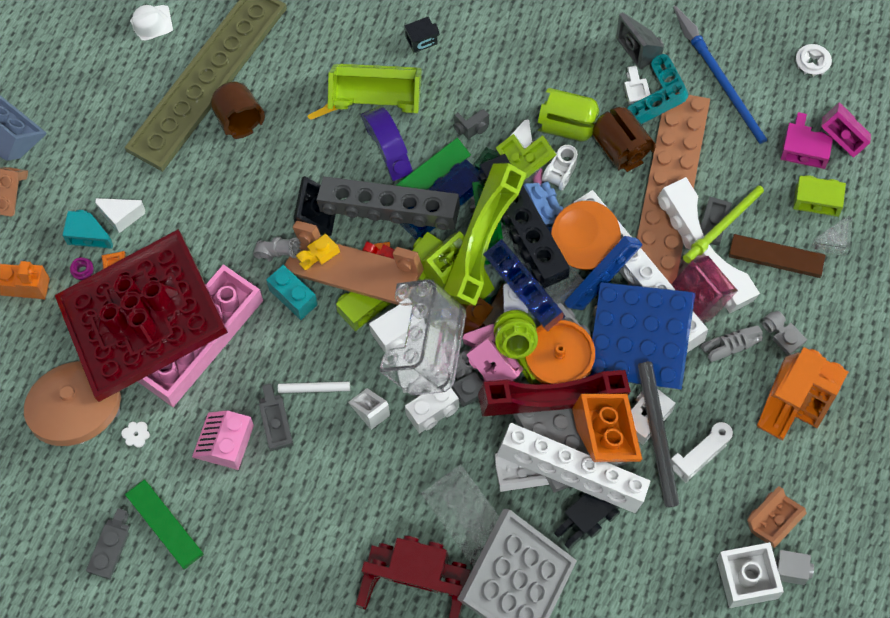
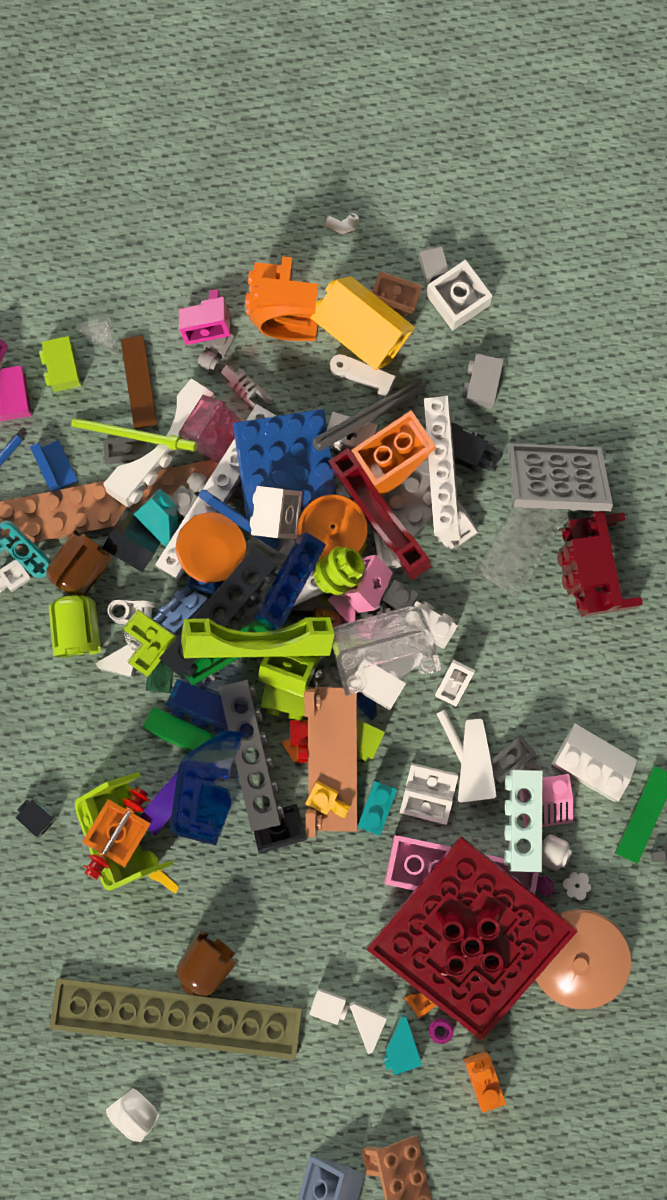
camera: 120 degrees left, 15 degrees up
(150, 404) = (545, 886): none -> magenta plate
(151, 188) = (328, 1006): none -> white brick
(174, 423) = (555, 852): none -> white head
(233, 497) = (595, 763): none -> white slope
(242, 417) = (532, 859): none -> light aqua brick
(277, 248) = (336, 844): light grey connector -> none
(281, 389) = (476, 765): none -> white sticker
(283, 344) = (428, 793): none -> white slope
(374, 147) = (198, 803): none -> clear blue windscreen
(376, 79) = (116, 833): none -> orange plate
(476, 124) = (118, 714): dark grey bracket -> none
(594, 303) = (276, 512): none -> white slope
(627, 193) = (131, 541): none -> black slope
(638, 214) = (159, 516): none -> teal slope
(650, 248) = (184, 497): none -> light grey plate
(650, 561) = (483, 382): none -> light grey brick
(724, 156) = (54, 465): none -> blue panel
(754, 464) = (362, 322): none -> yellow brick
(813, 329) = (206, 320): none -> hinge
(868, 501) = (344, 226): none -> white arm

